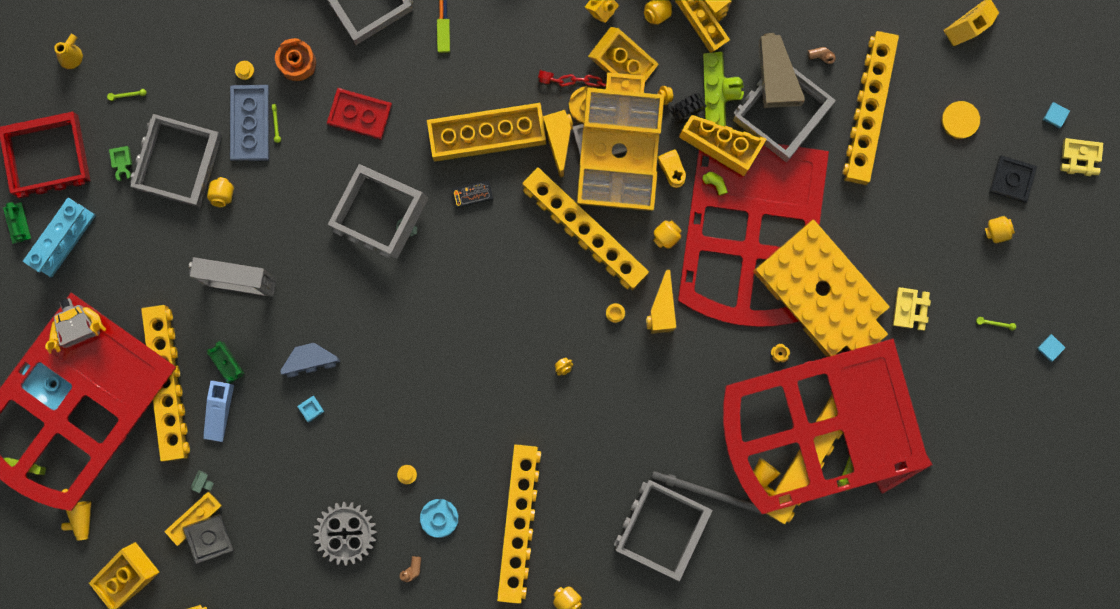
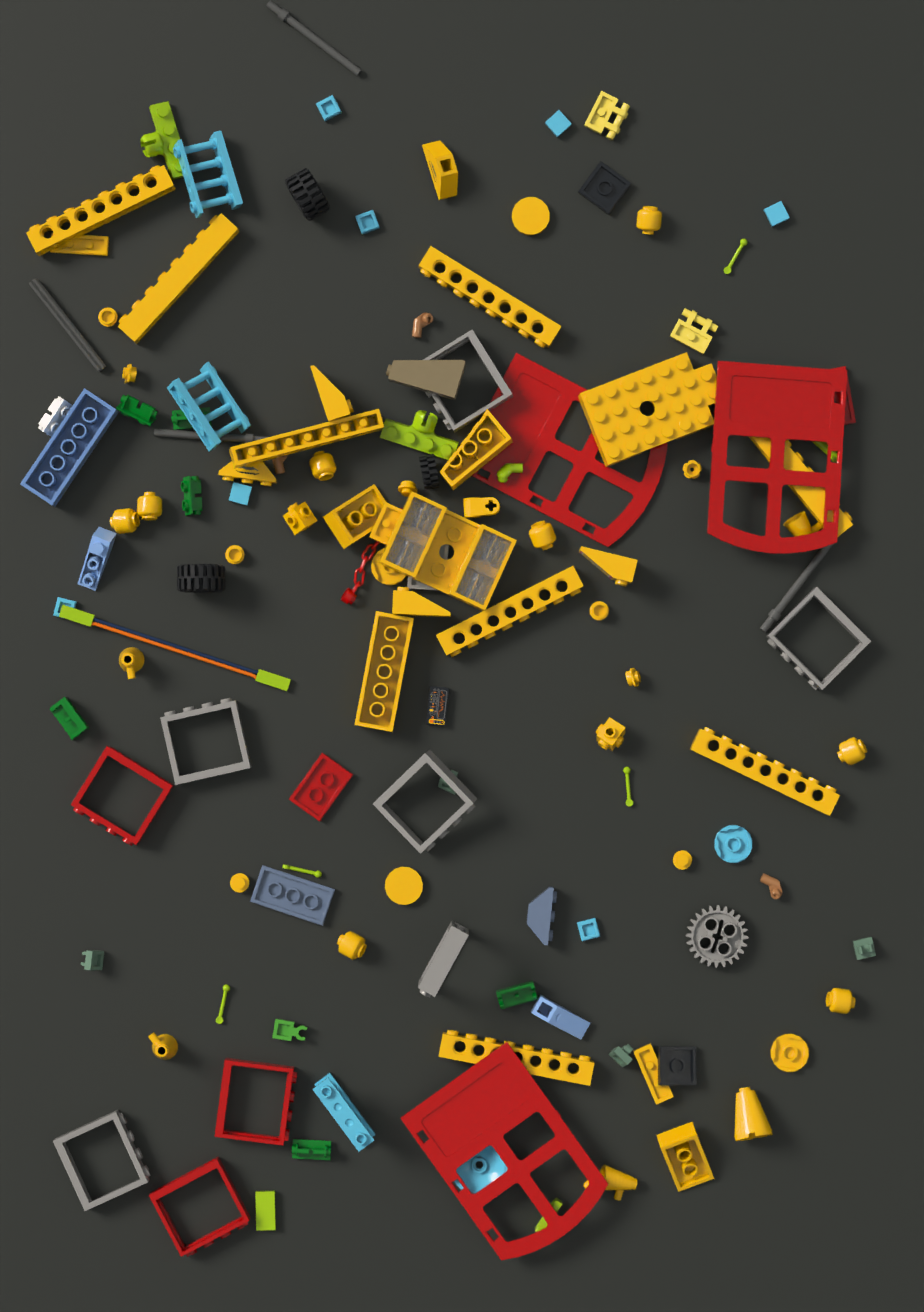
camera: 75 degrees left, 5 degrees up
(73, 326) = (435, 1124): torso -> none
(205, 169) = (280, 999): light grey window -> none
(285, 59) = (240, 837): orange brick -> none
(293, 221) = (403, 885): none -> yellow tile
(444, 405) = (629, 802): none -> lime hinge
(501, 363) = (610, 734): none -> yellow brick

